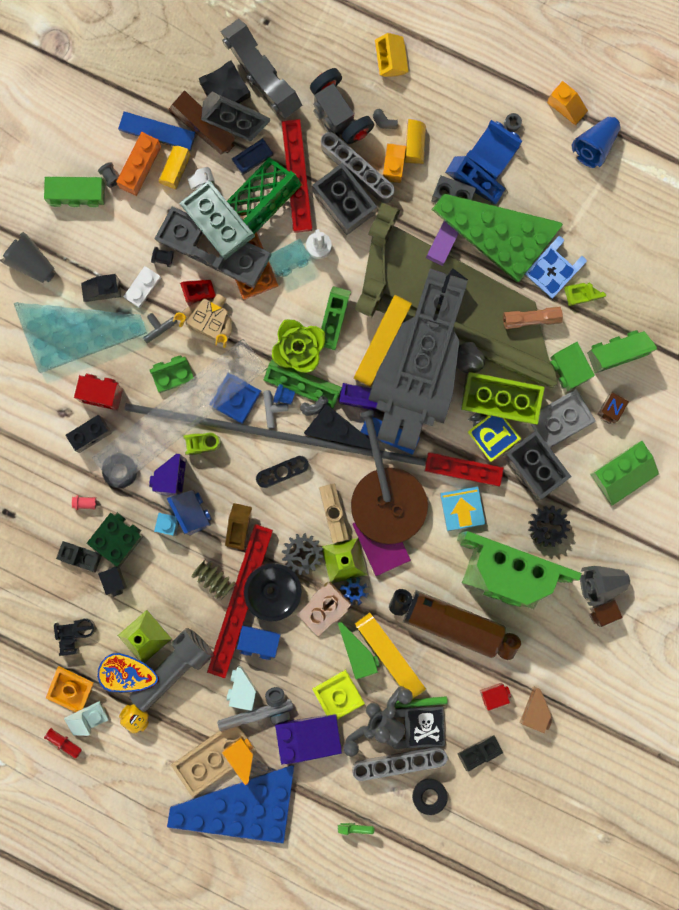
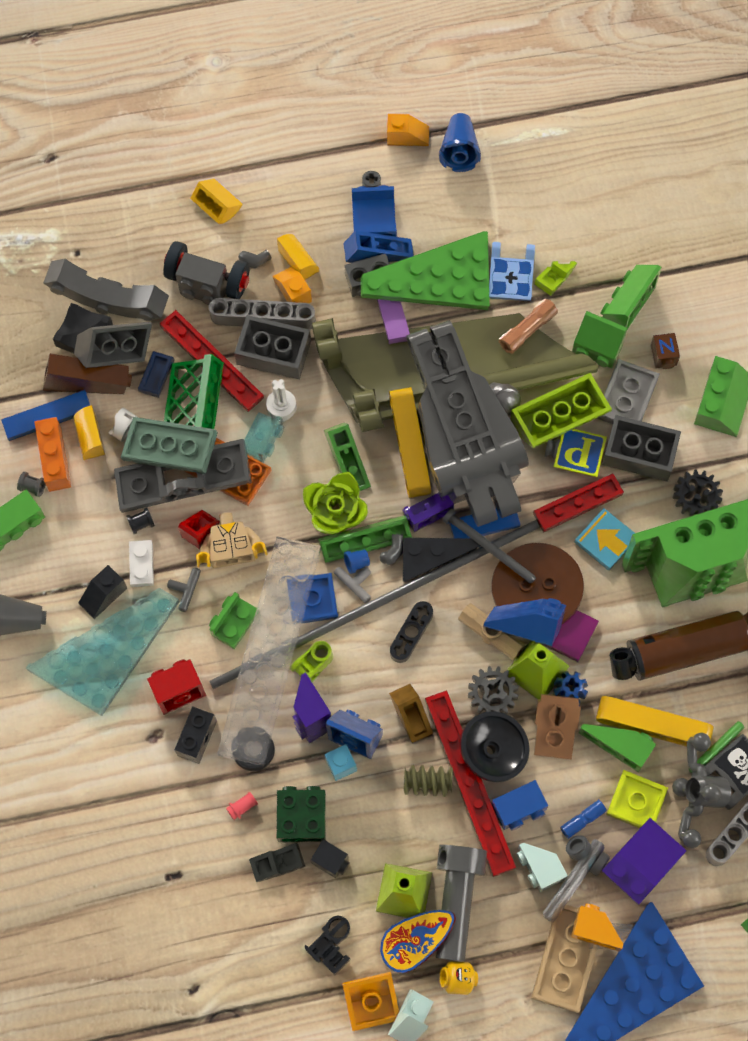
camera: 30 degrees left, 15 degrees down
(290, 680) = (585, 817): none -> blue piece
(358, 527) = (531, 620): none -> blue slope

